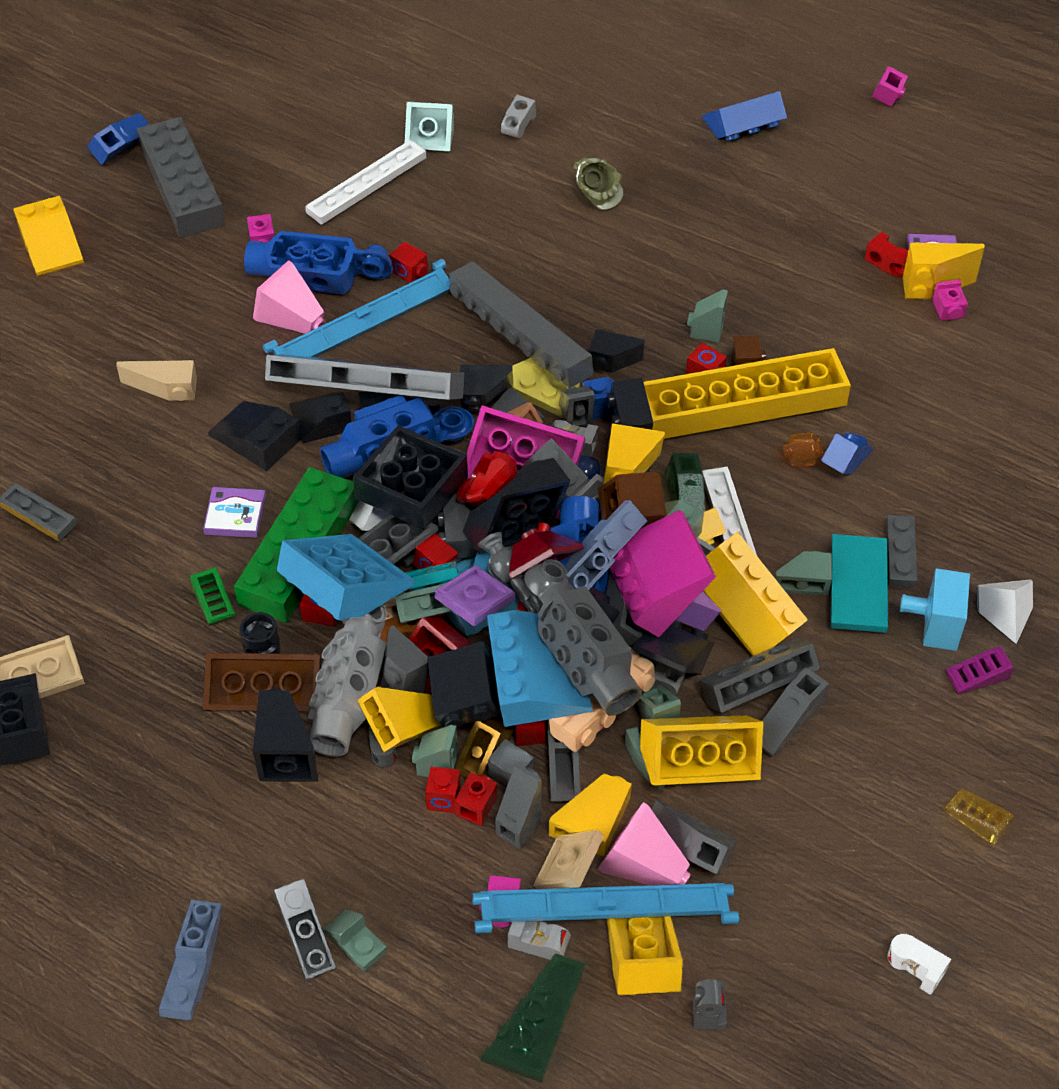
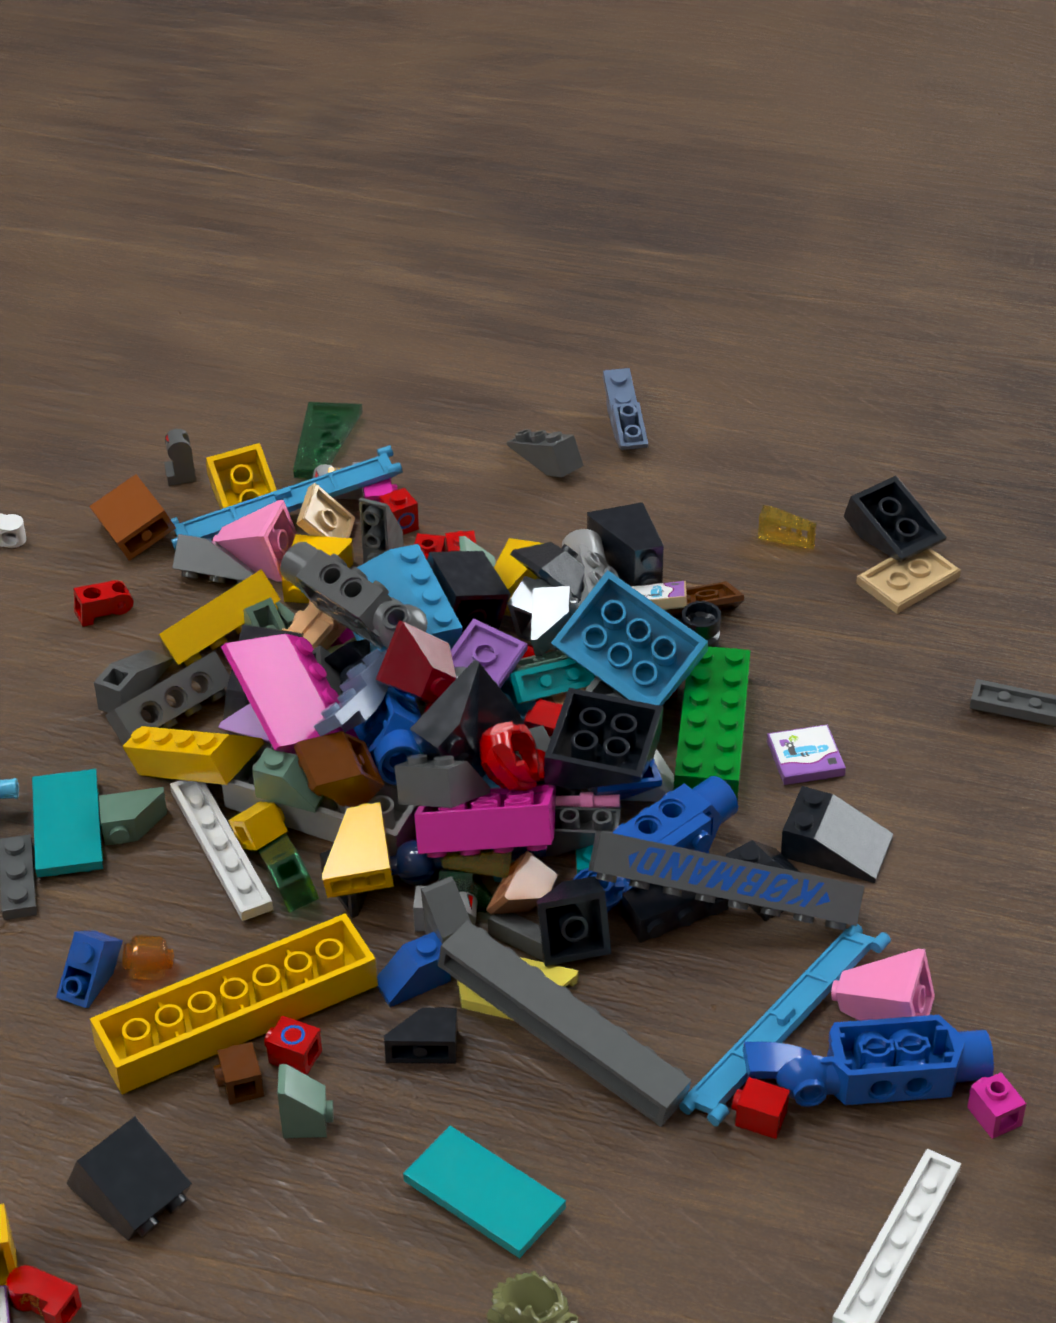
camera: 165 degrees right, 10 degrees down
(121, 751) = (770, 528): none -> clear yellow slope
(161, 378) = (987, 870): tan slope -> none
(207, 577) = (781, 671): green slope -> none
(285, 671) = (665, 595): none -> tile
(355, 939) = (499, 456): sand green slope -> none
(382, 661) = (553, 565): none -> black slope
(383, 284) = (766, 1058): none -> blue slope
(400, 616) = (550, 612): none -> slope
(487, 860) = (403, 508): none -> red brick
(603, 257) = (484, 1191): none -> teal tile
(630, 404) = (376, 916): black slope -> none
(772, 922) = (132, 517): none -> dark orange brick
(812, 822) = (101, 600): none -> red leg
(832, 303) = (129, 1180): none -> black slope

